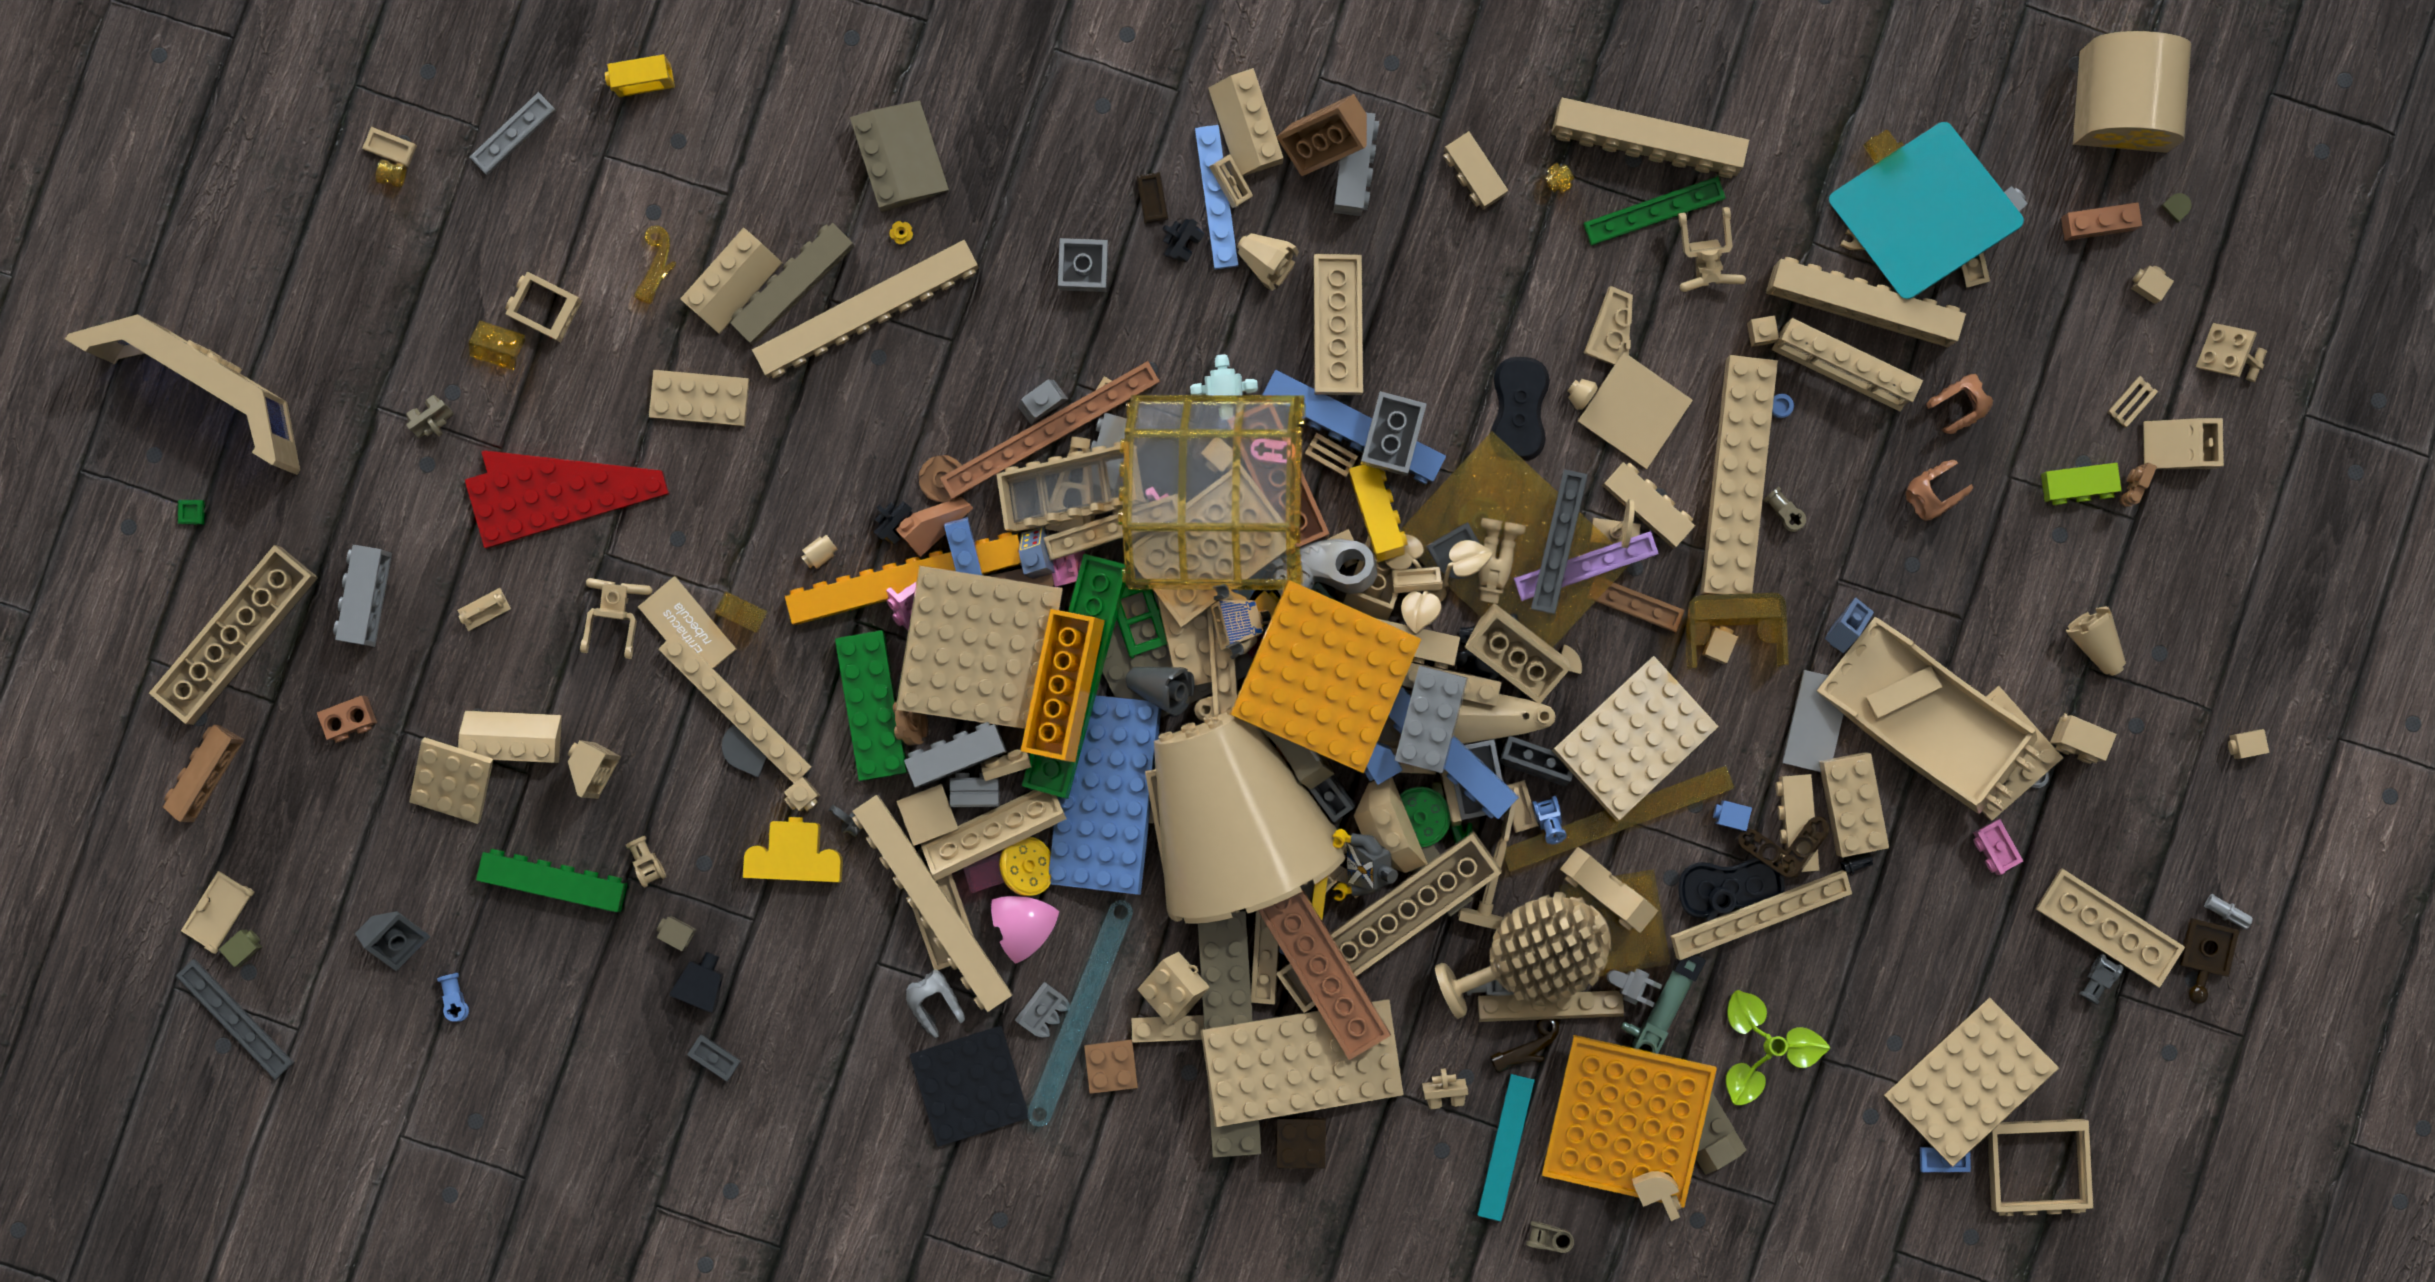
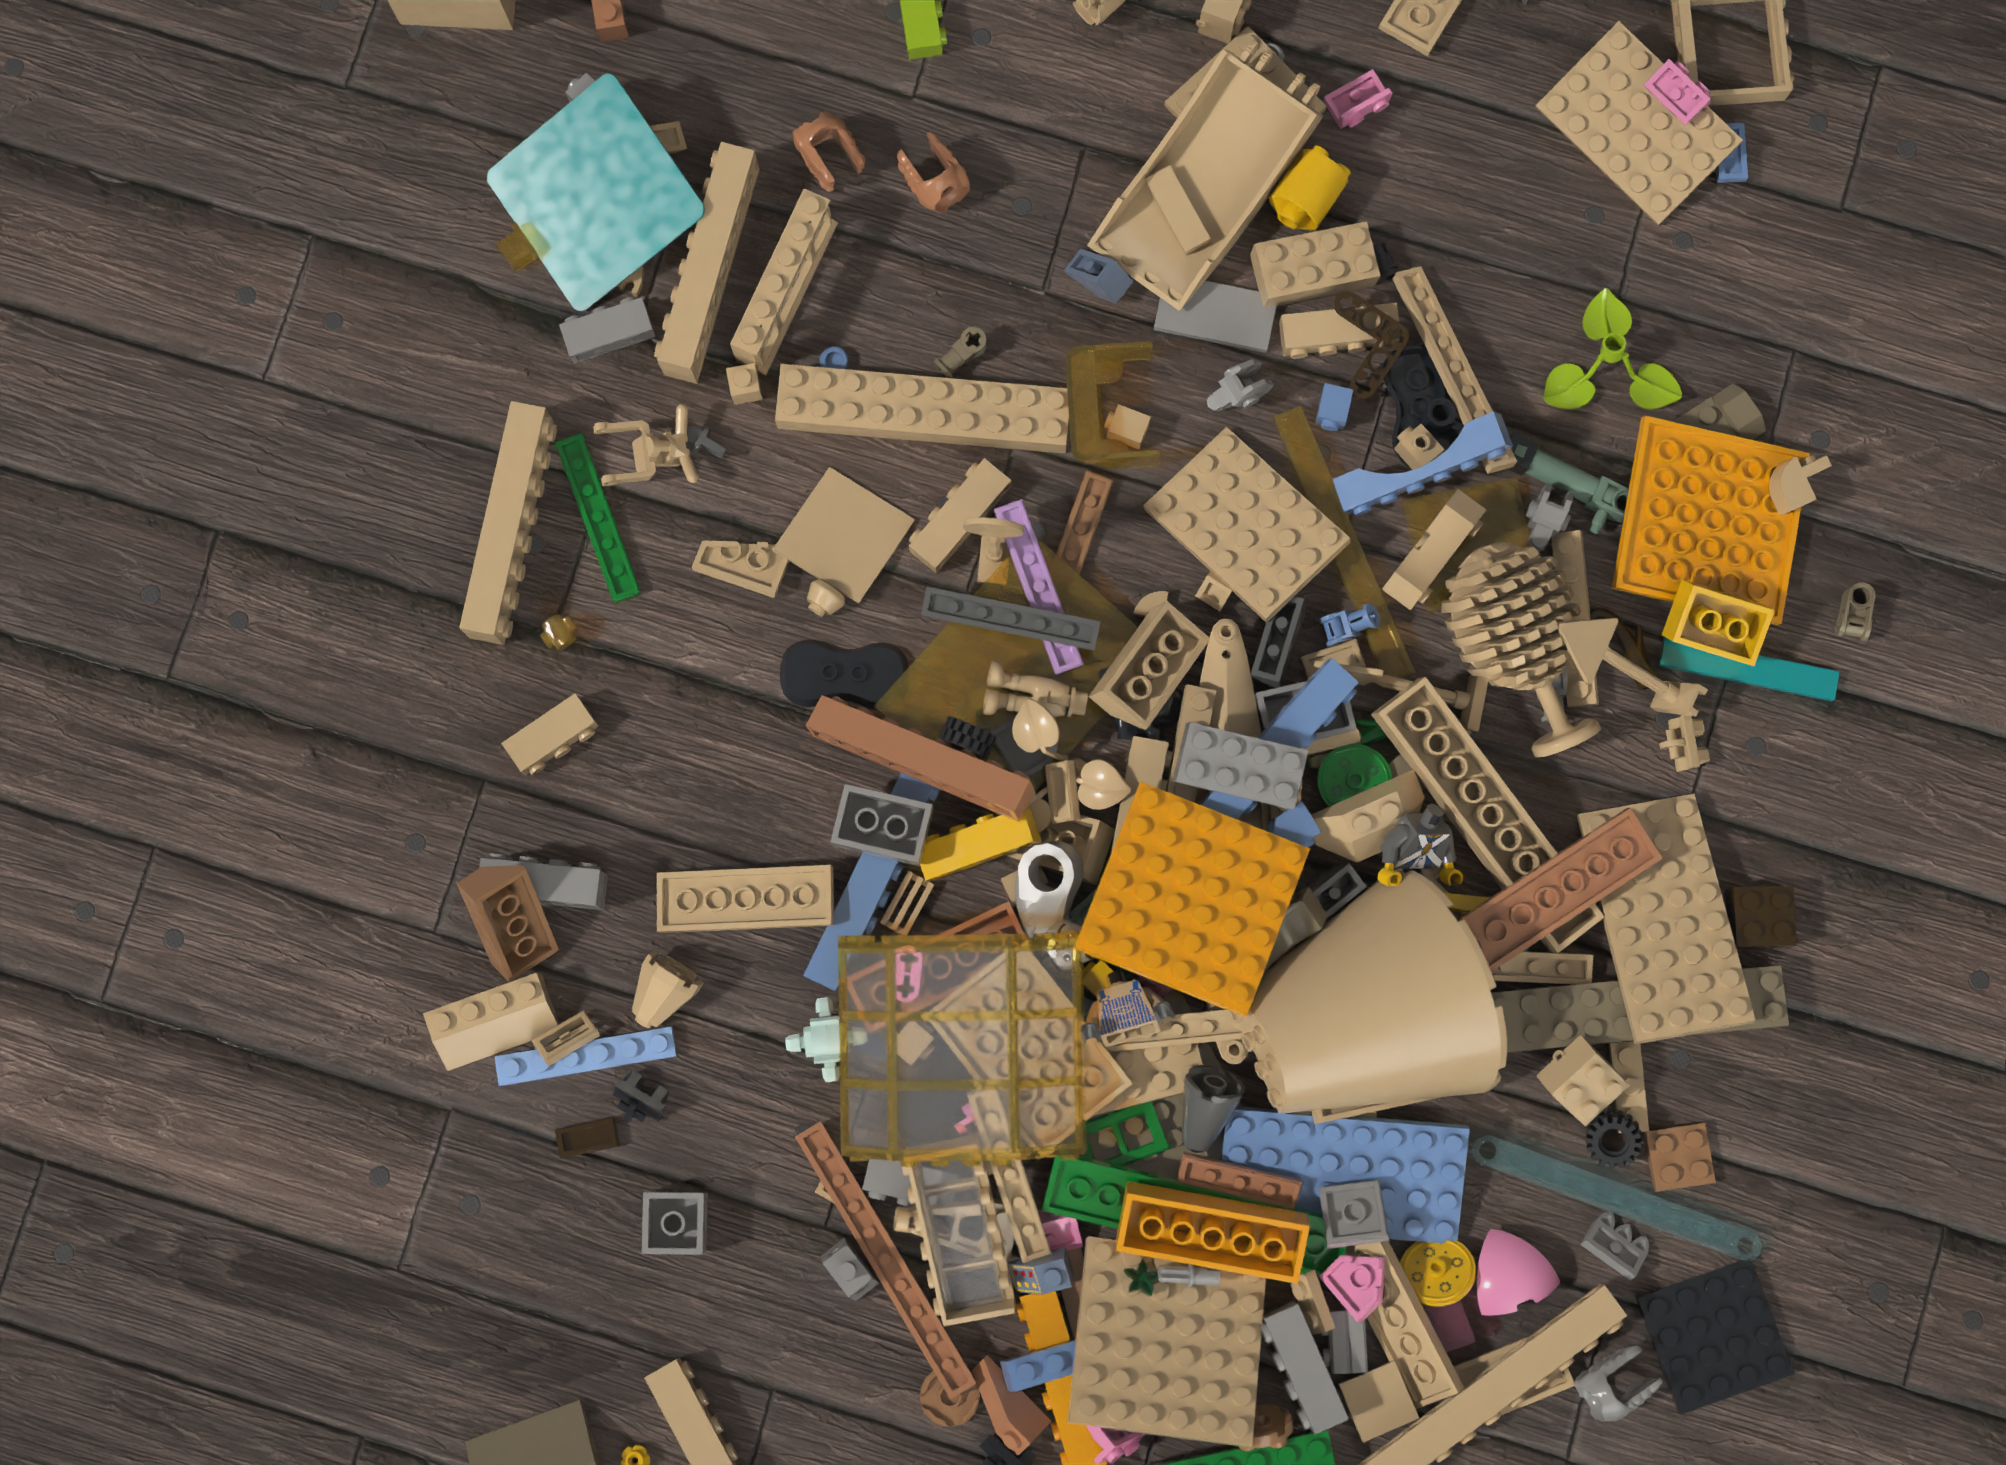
camera: 85 degrees left, 5 degrees down
(1019, 799) = (1356, 1283): none -> bright pink plate
(1028, 628) = (1141, 1279): none -> dark green plant
(1030, 665) = (1189, 1275): none -> light grey axle
(1073, 798) = (1353, 1214): none -> light grey tile
(1102, 710) = (1239, 1180): none -> nougat tile
(1114, 1007) = (1613, 1157): none -> black tyre
(1447, 466) = (921, 757): none -> nougat brick
(1462, 504) = (967, 736): none -> black tyre
(1523, 1007) = (1588, 646): none -> tan piece
(1542, 1118) = (1718, 622): none -> yellow brick
(1579, 710) = (1213, 592): none -> tan plate
(1695, 881) = (1418, 447): none -> tan brick
(1697, 926) = (1478, 440): none -> medium blue arch
(1718, 292) = (699, 438): none -> dark grey piece
(1750, 737) = (1238, 388): none -> light grey hinge
(1811, 219) = (607, 329): none -> light grey brick
(1917, 801) = (1308, 189): none -> yellow cylinder
(1994, 1112) = (1678, 92): none -> bright pink bracket

